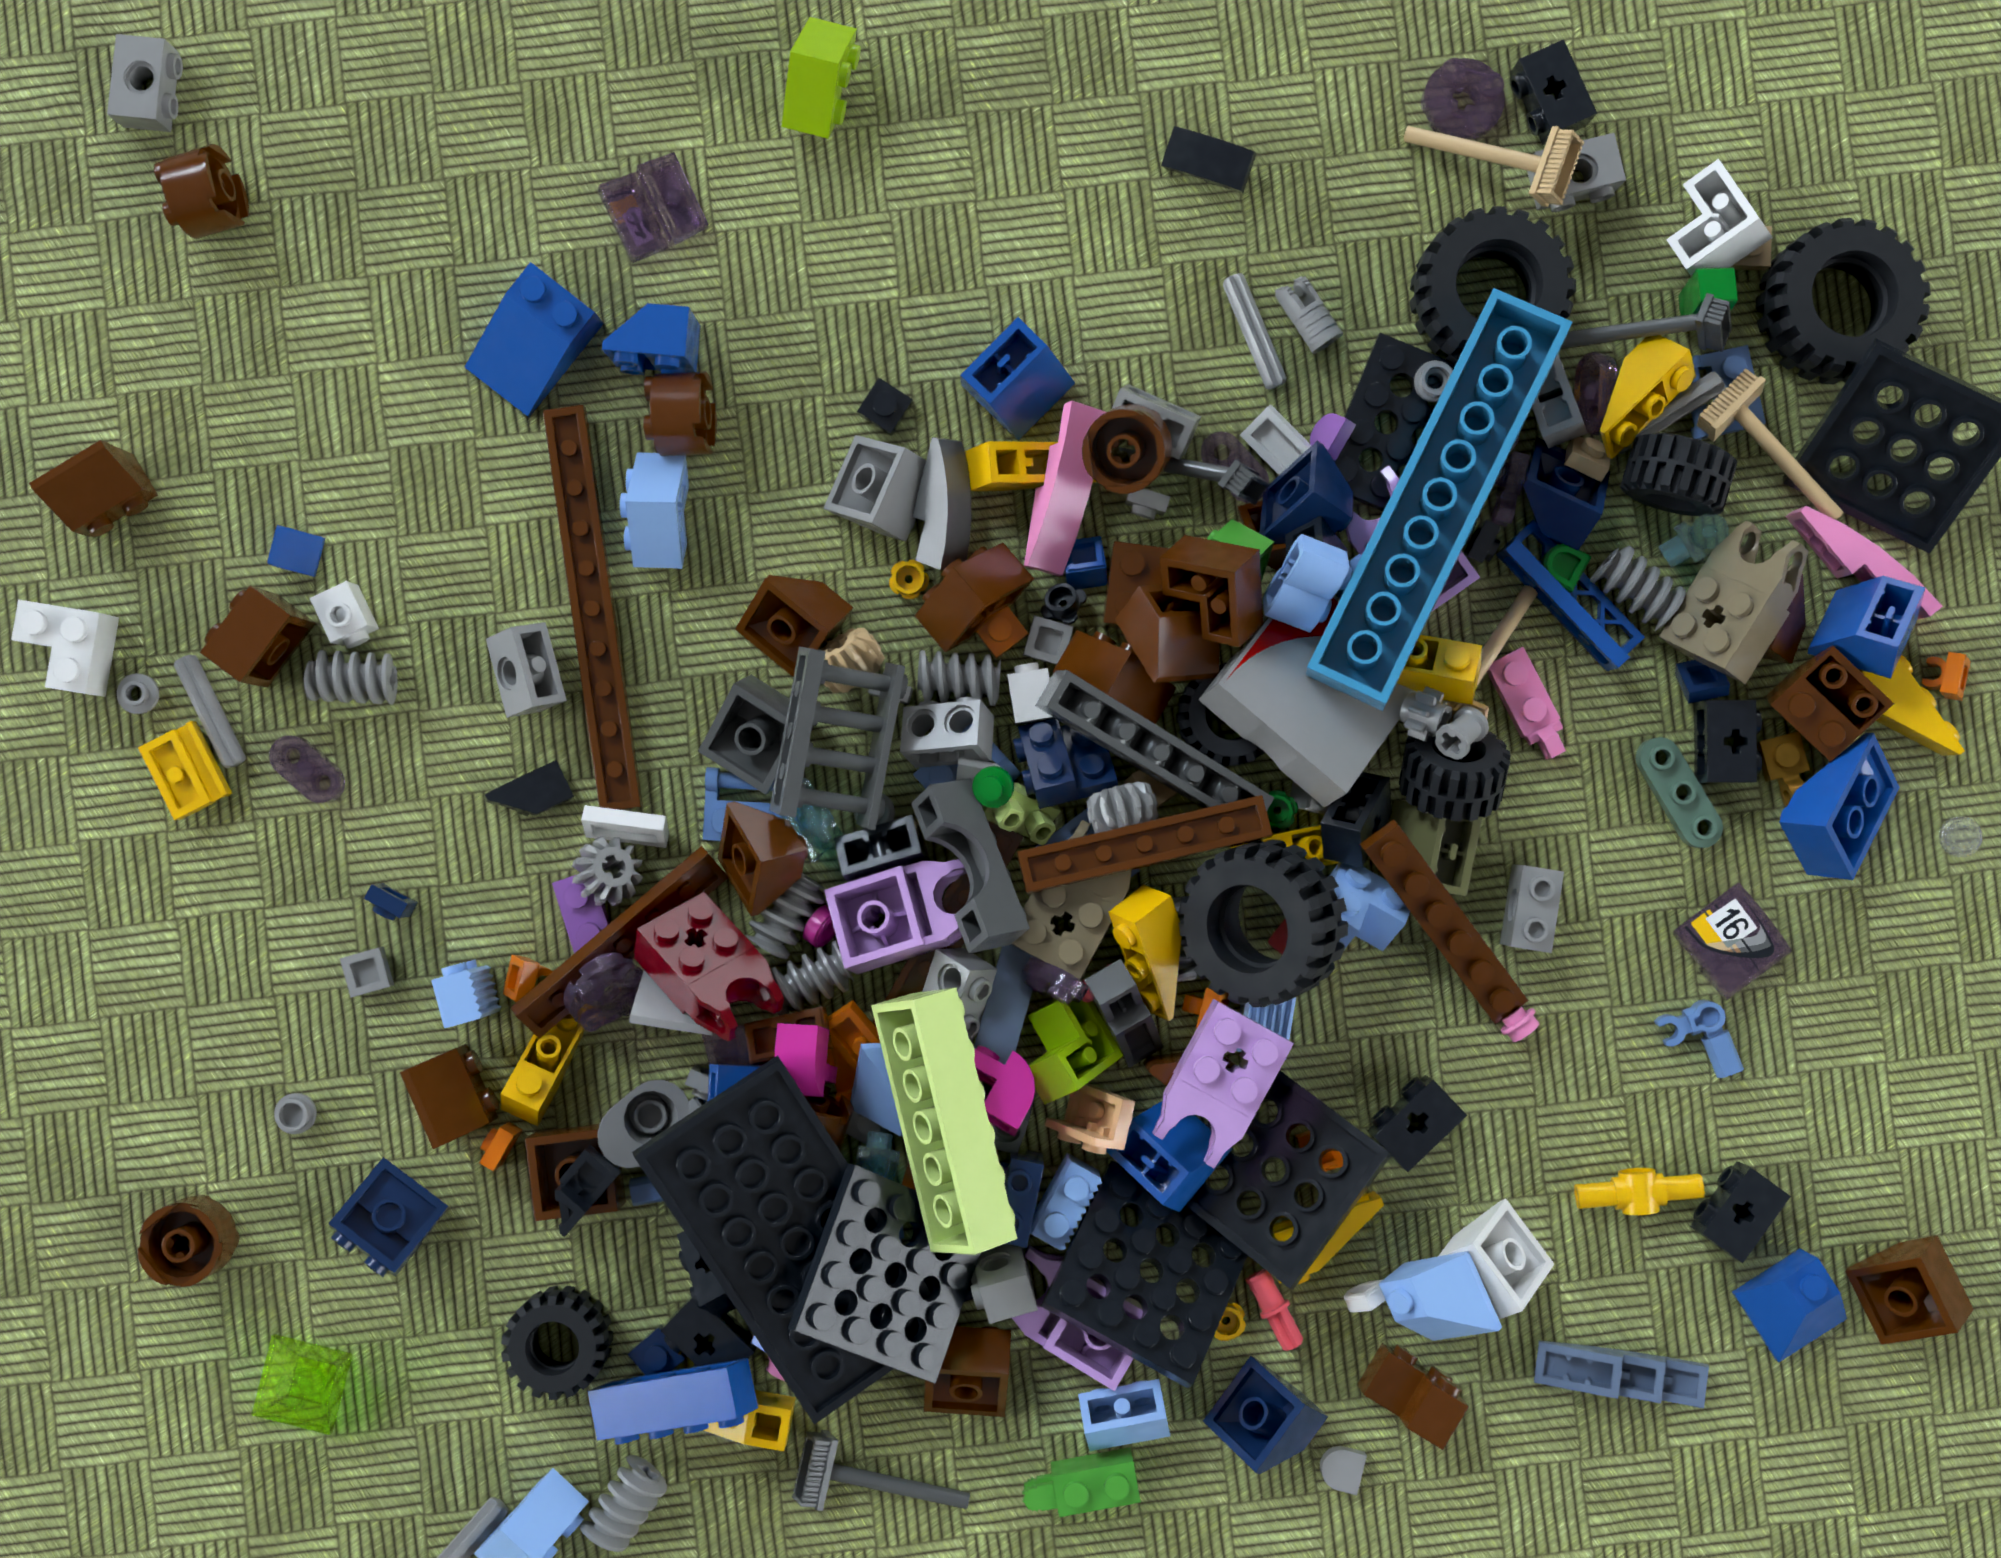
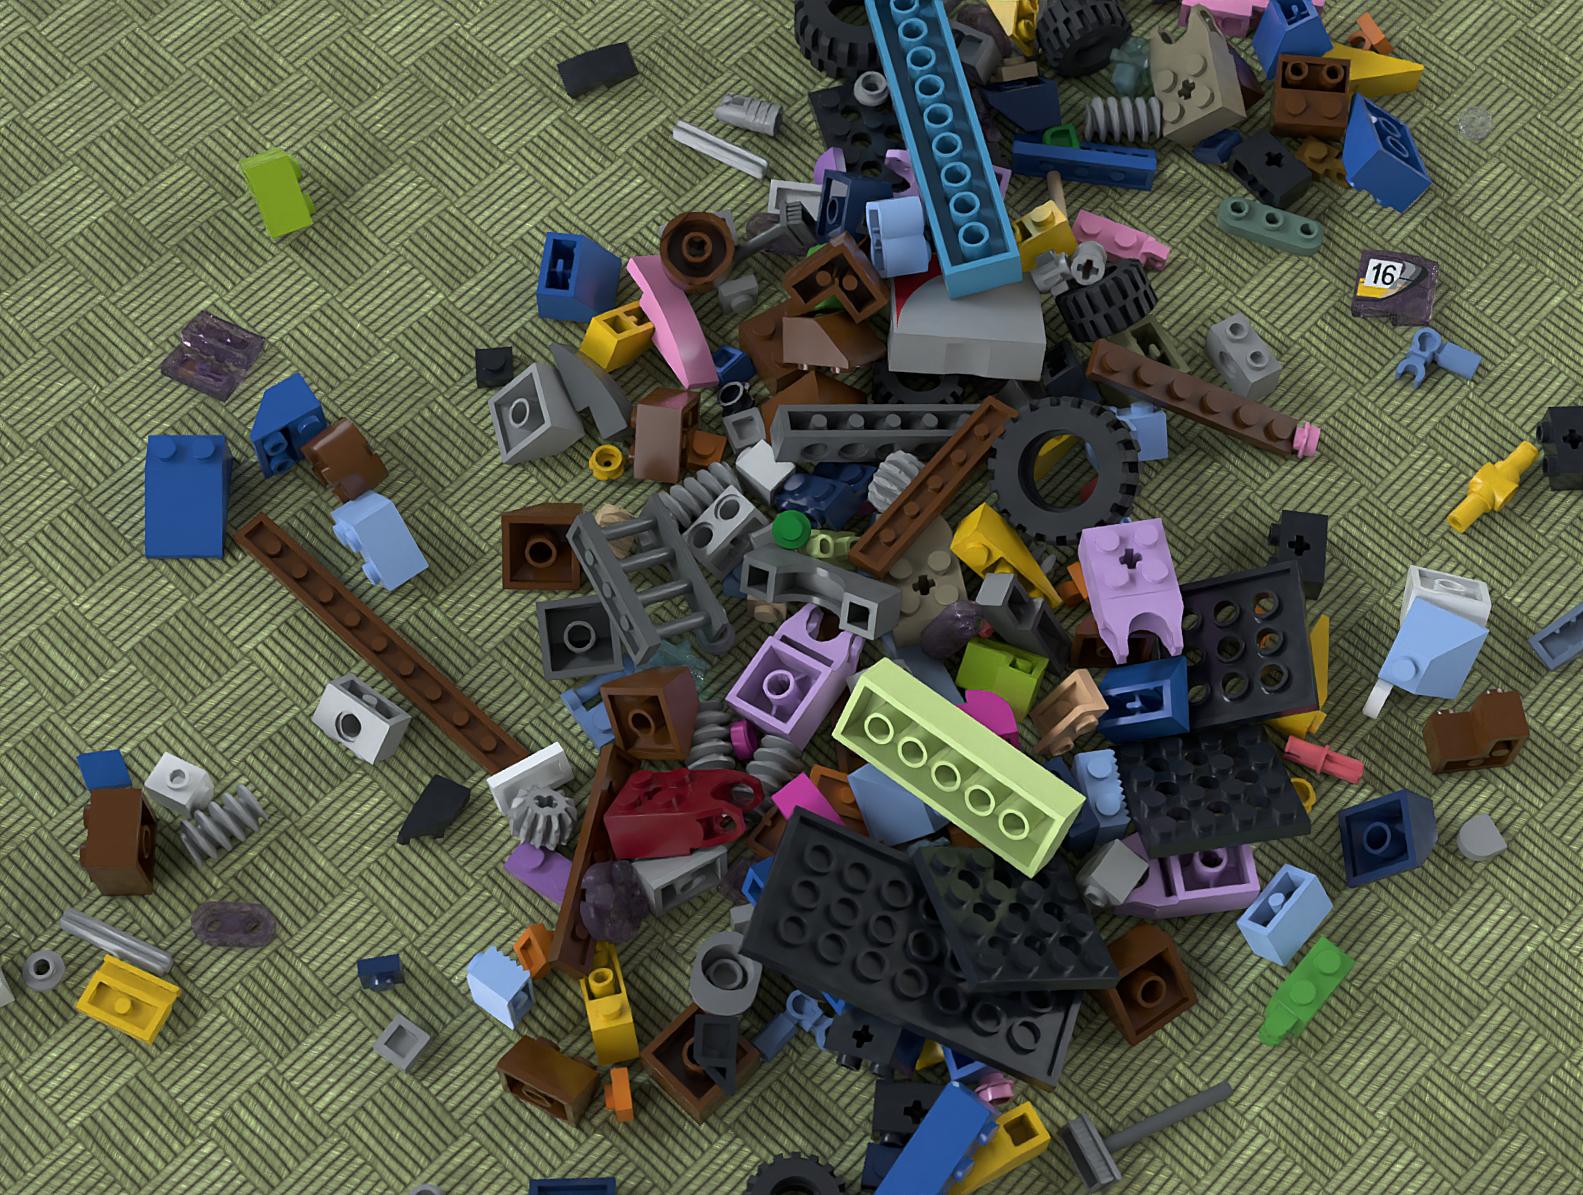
camera: 40 degrees left, 25 degrees down
(881, 849) = (740, 643): black brick -> none

